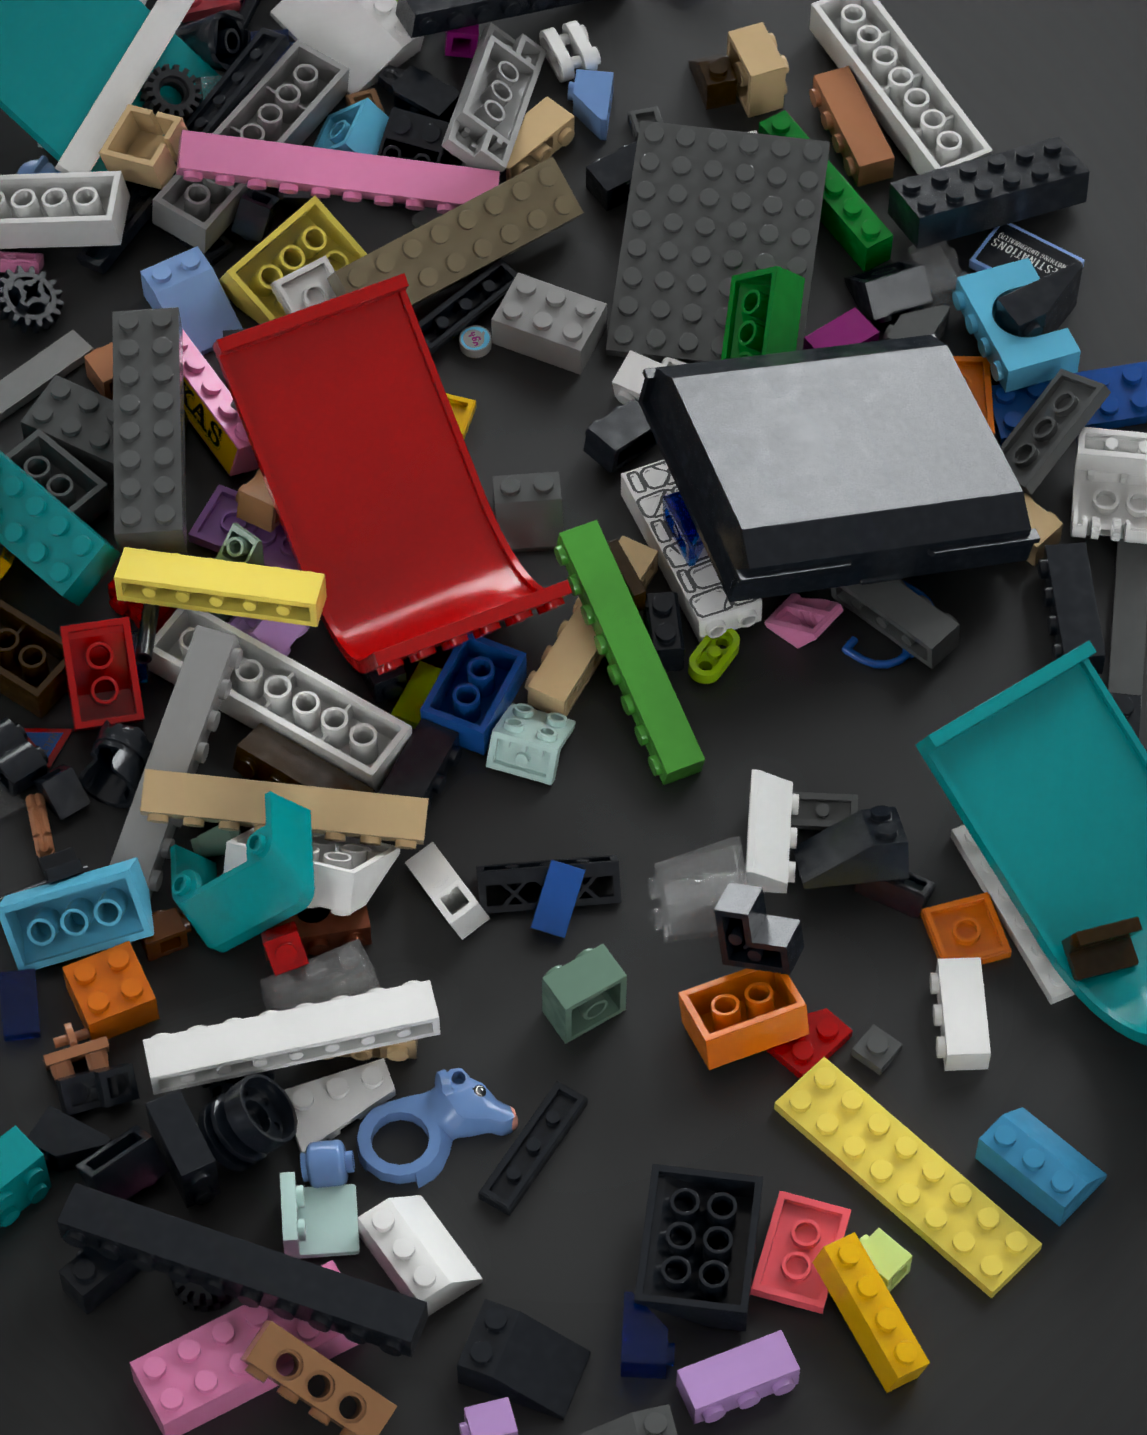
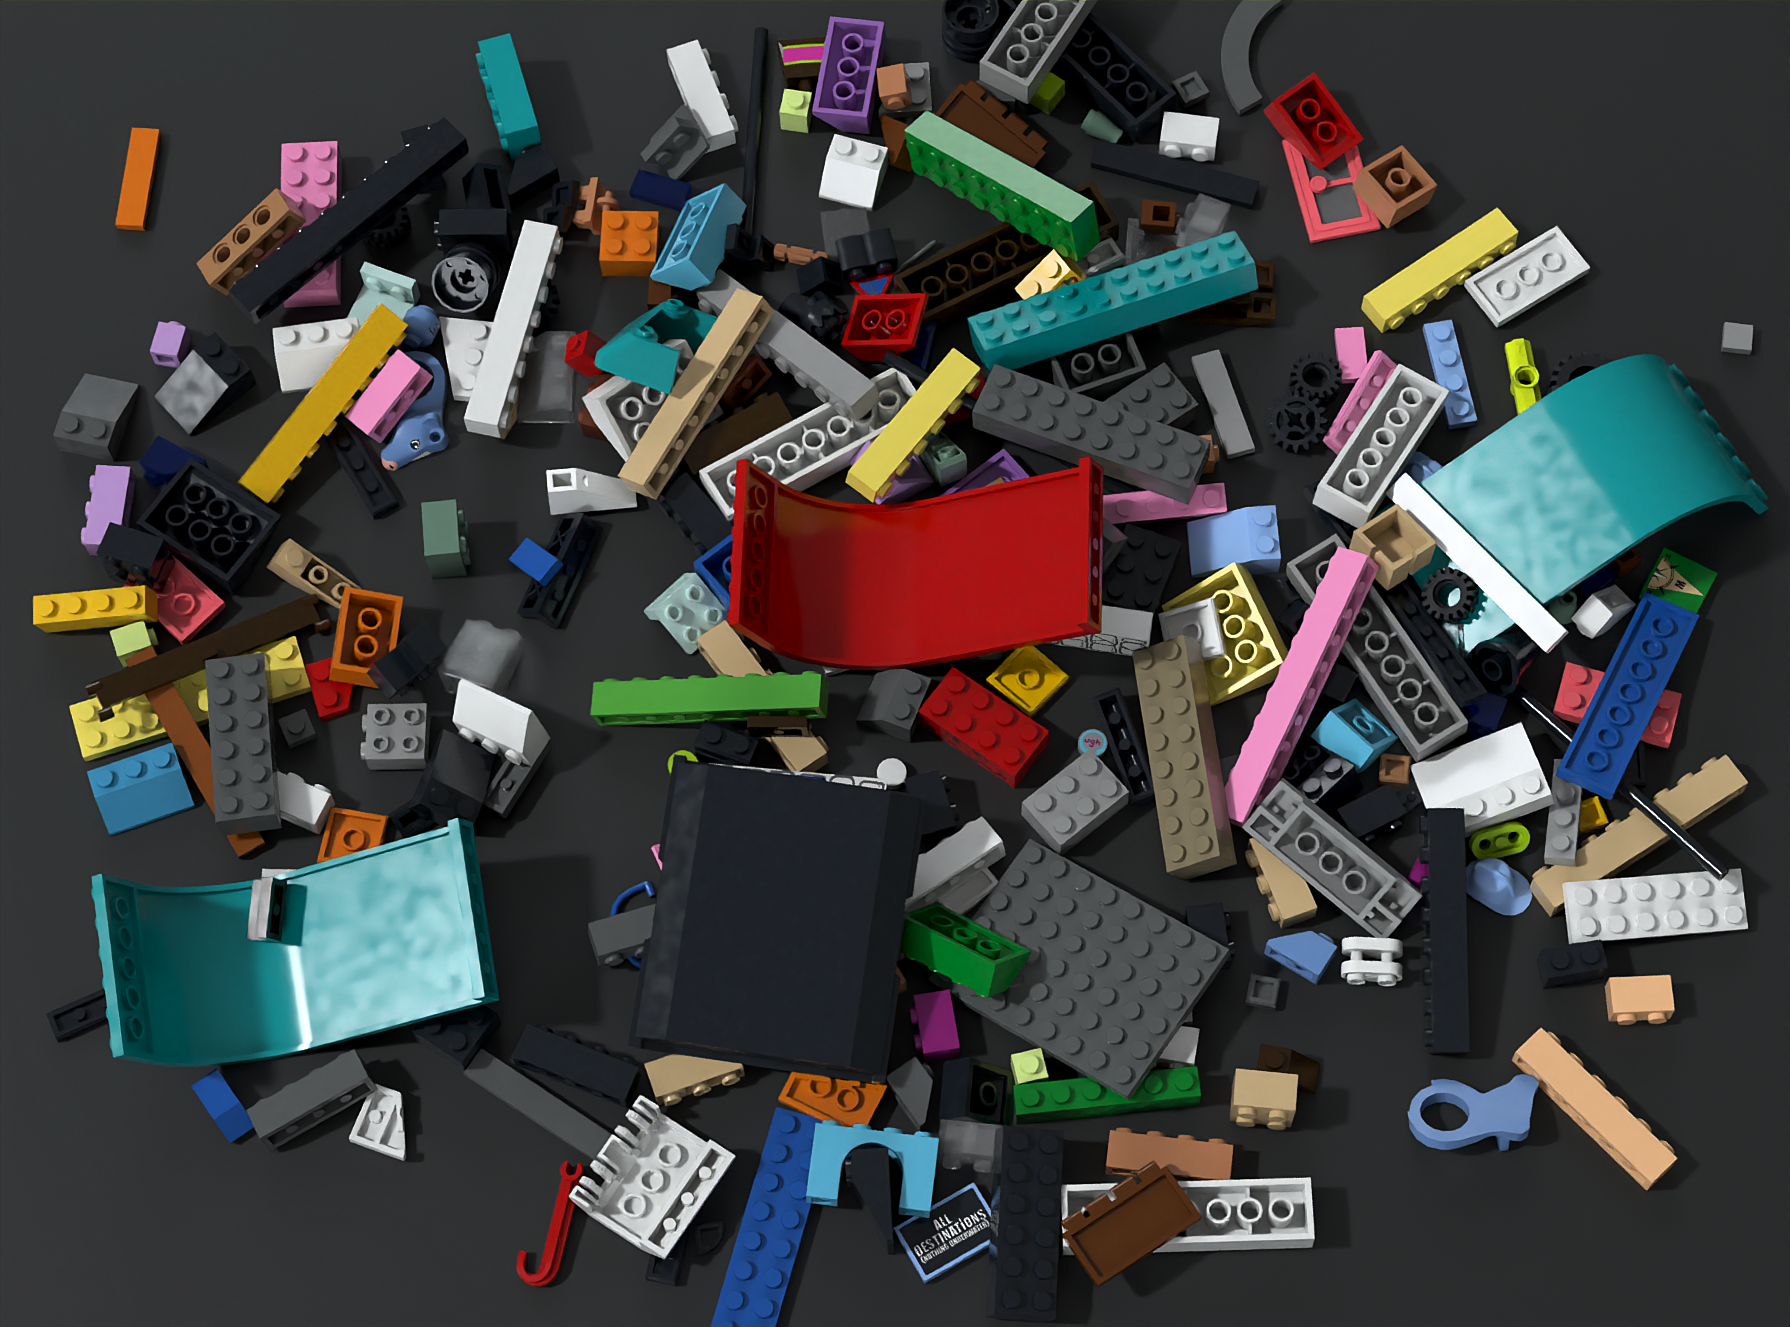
camera: 120 degrees right, 10 degrees up
(439, 1137) = (388, 396): none -> bright pink brick
(488, 1196) = (322, 404): none -> yellow brick
(513, 420) = (983, 727): none -> red brick
(603, 490) = (893, 771): none -> white tile
(695, 1120) = (309, 573): none -> tan slope
(793, 1283) = (135, 557): none -> black piece
(836, 935) = (396, 736): none -> light grey brick
(838, 255) = (1029, 1067): none -> yellowish green brick
(857, 1164) = (192, 656): none -> dark brown piece
(938, 1062) = (243, 744): none -> dark grey brick
(943, 106) = (1131, 1225): none -> reddish brown hinge
(965, 1127) = (191, 747): none -> dark orange tile
(1051, 426) = (747, 1130): dark grey plate -> none

